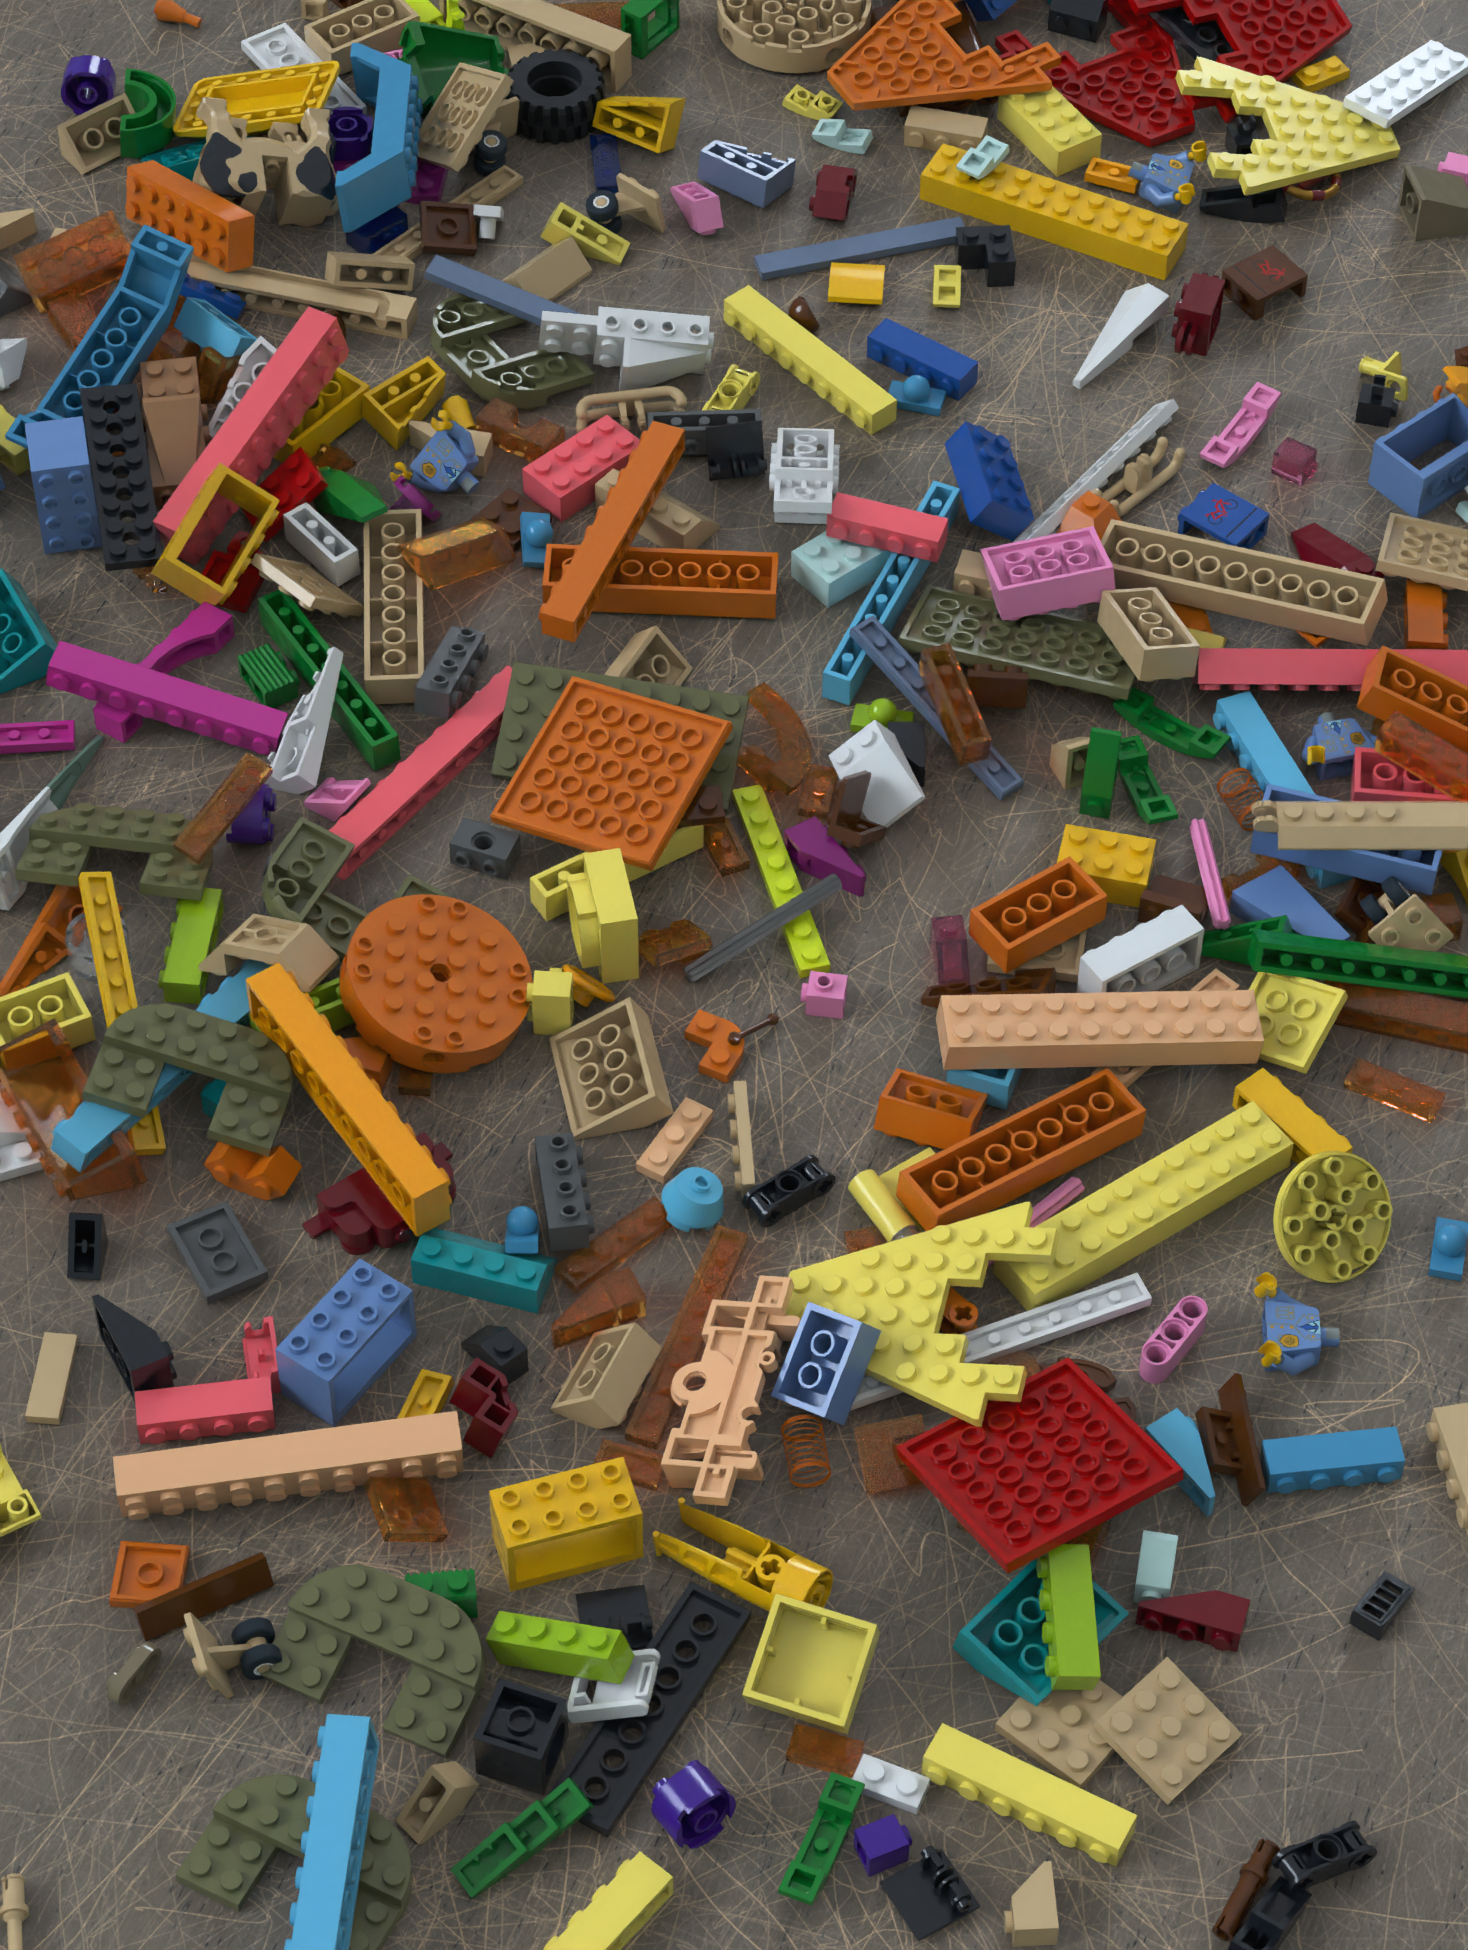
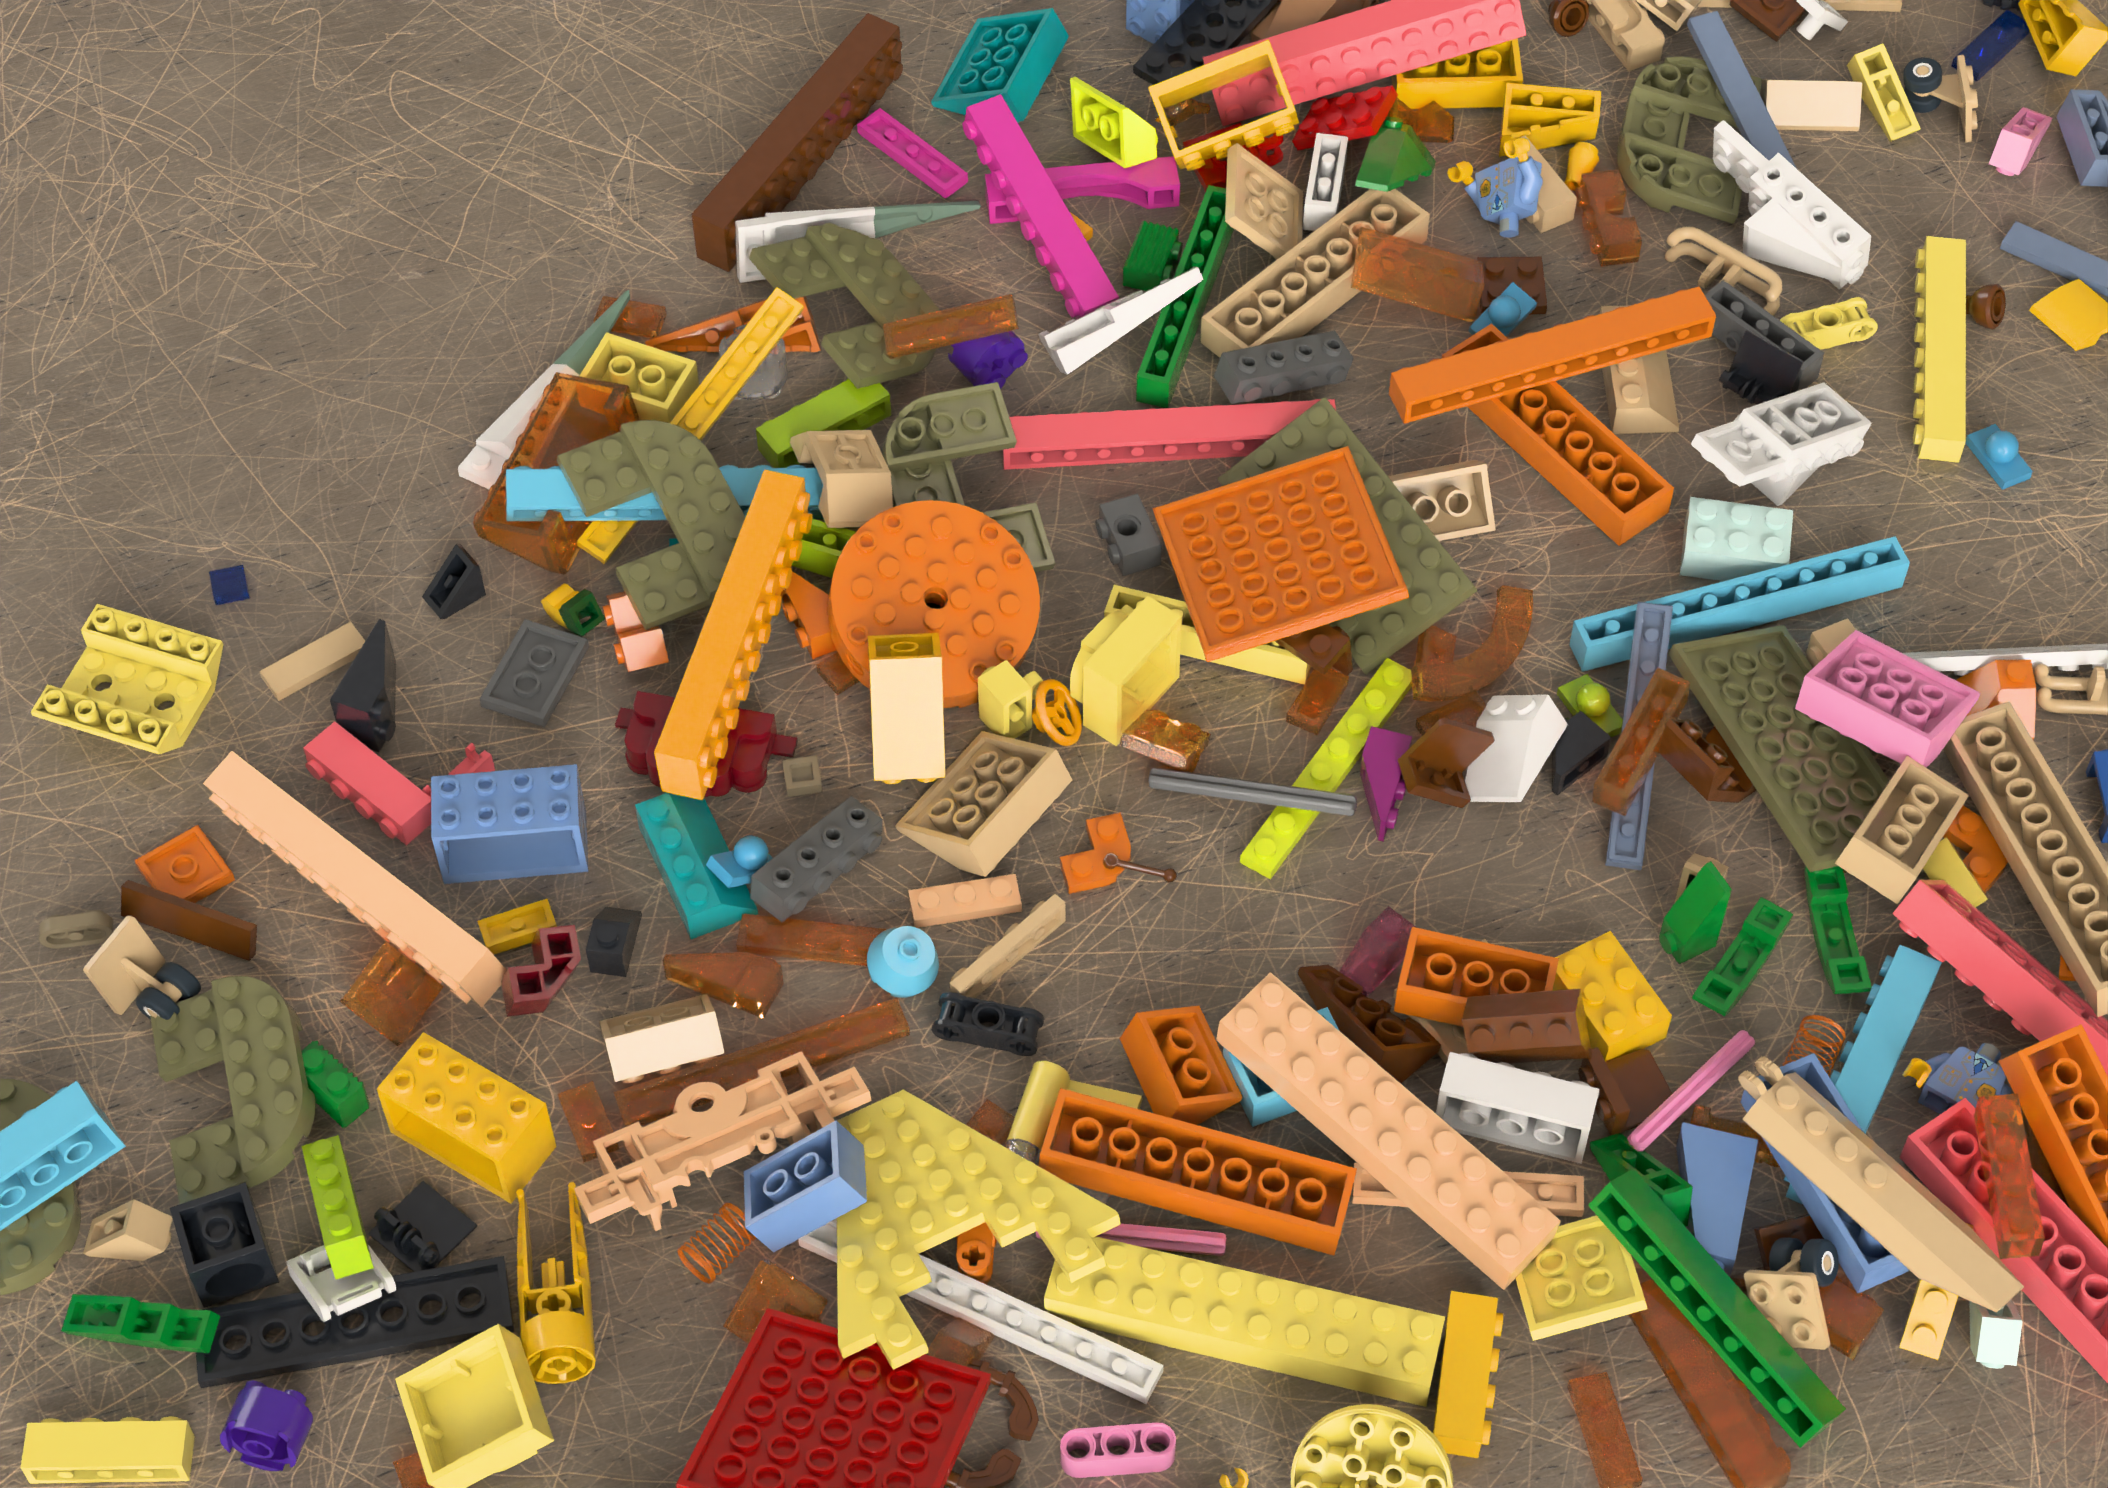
camera: 50 degrees right, 5 degrees up
(140, 612) = (1110, 126): none -> neon yellow slope
(191, 1191) = (570, 606): none -> dark green leg
(335, 797) = (1081, 395): bright pink slope -> none
(414, 499) = (1444, 205): magenta tile -> none
(478, 1158) = (802, 776): none -> dark tan plate
(506, 1050) = (906, 707): none -> slope
(567, 475) = (1606, 277): coral brick -> none
(825, 994) = (1231, 893): bright pink brick -> none
(887, 527) = (1788, 541): coral brick -> none
(918, 355) = (2045, 426): blue brick -> none
(989, 481) = (1951, 578): blue brick -> none
(1105, 903) = (1527, 1027): none -> reddish brown slope

